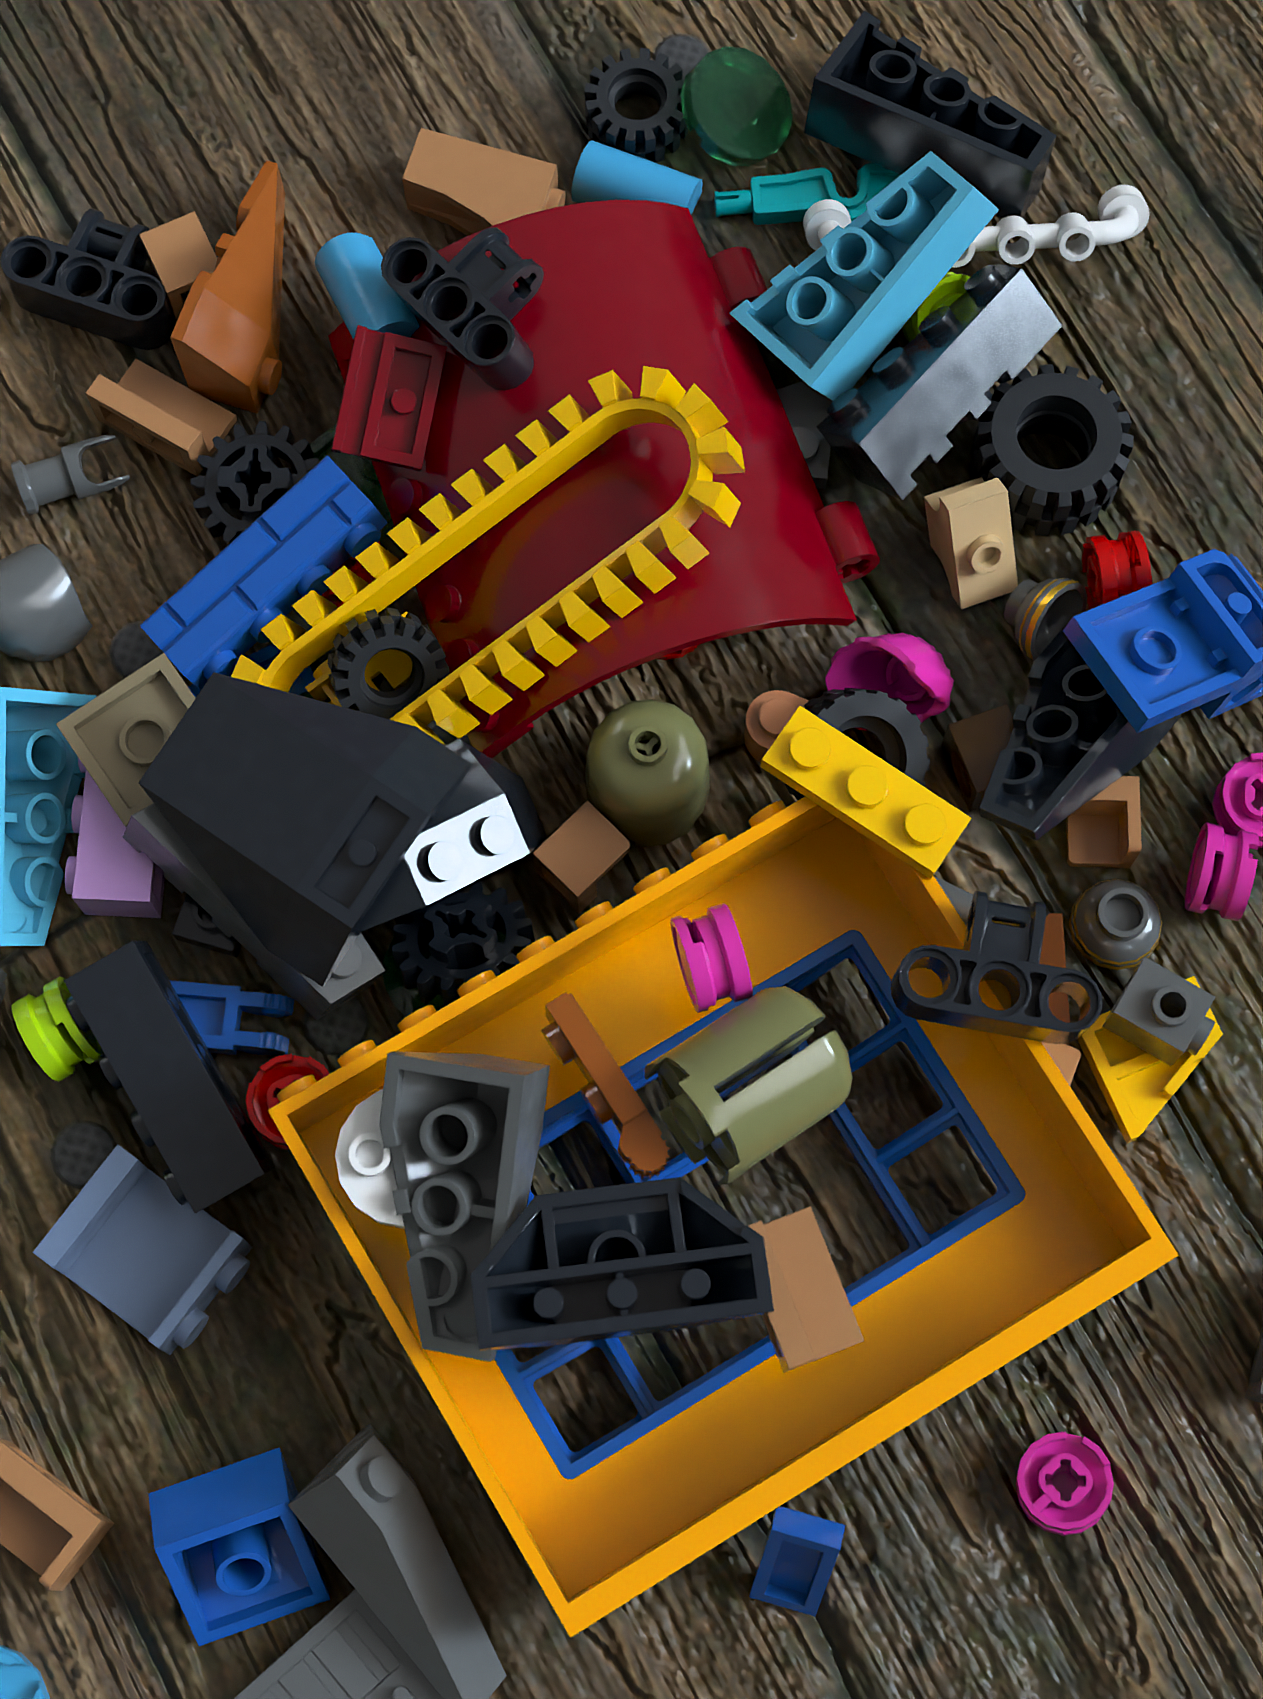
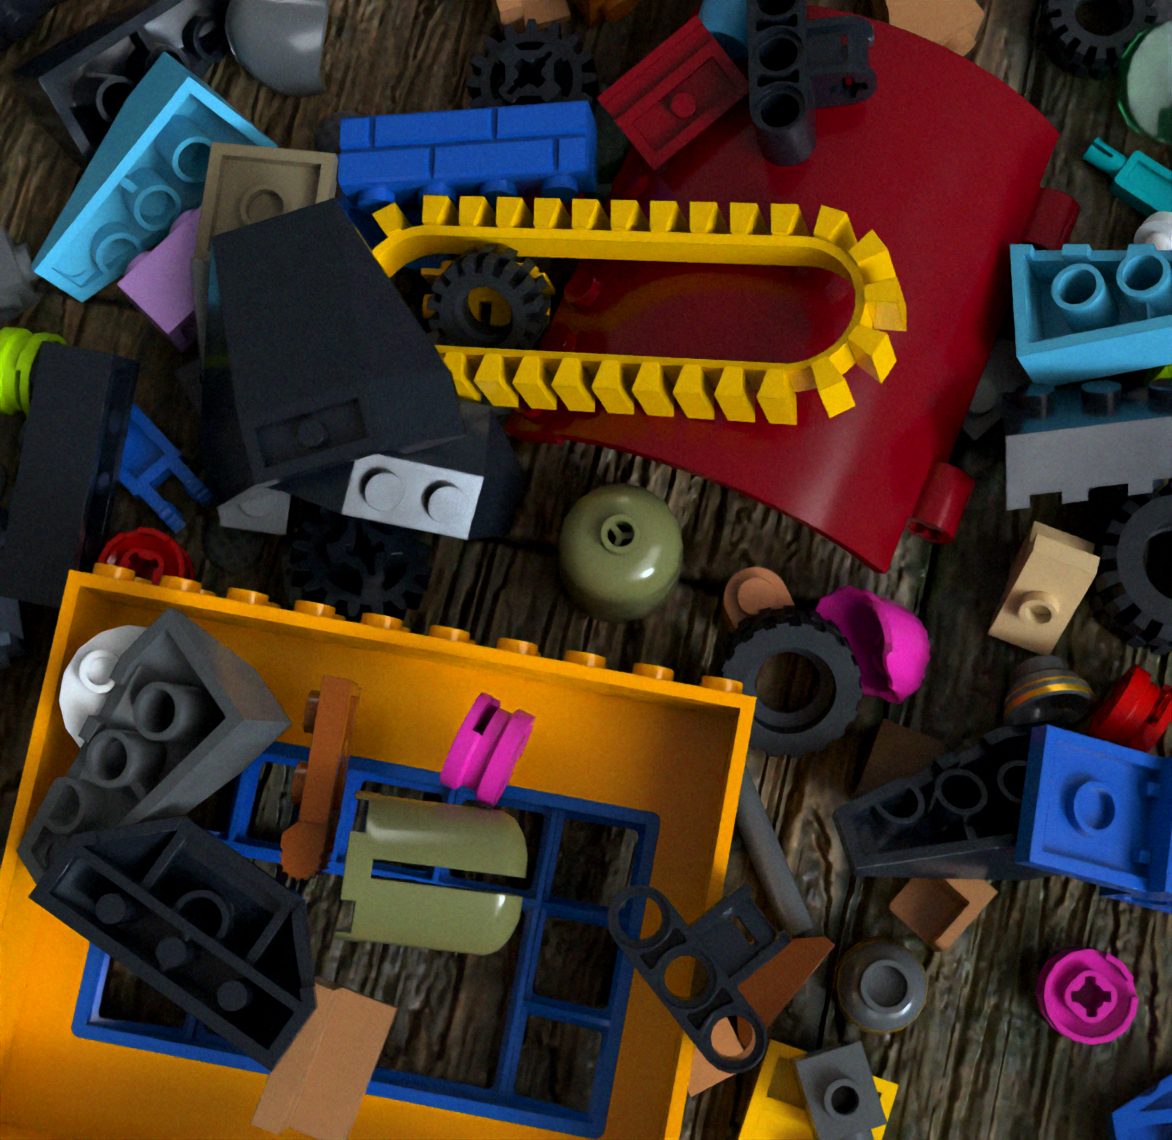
camera: 45 degrees right, 5 degrees up
(580, 855) = (514, 572): medium nougat panel -> none
(617, 175) = (1029, 65): dark azure brick -> none
(865, 792) = (736, 723): yellow plate -> none
(1221, 872) = (996, 1024): dark pink wheel -> none

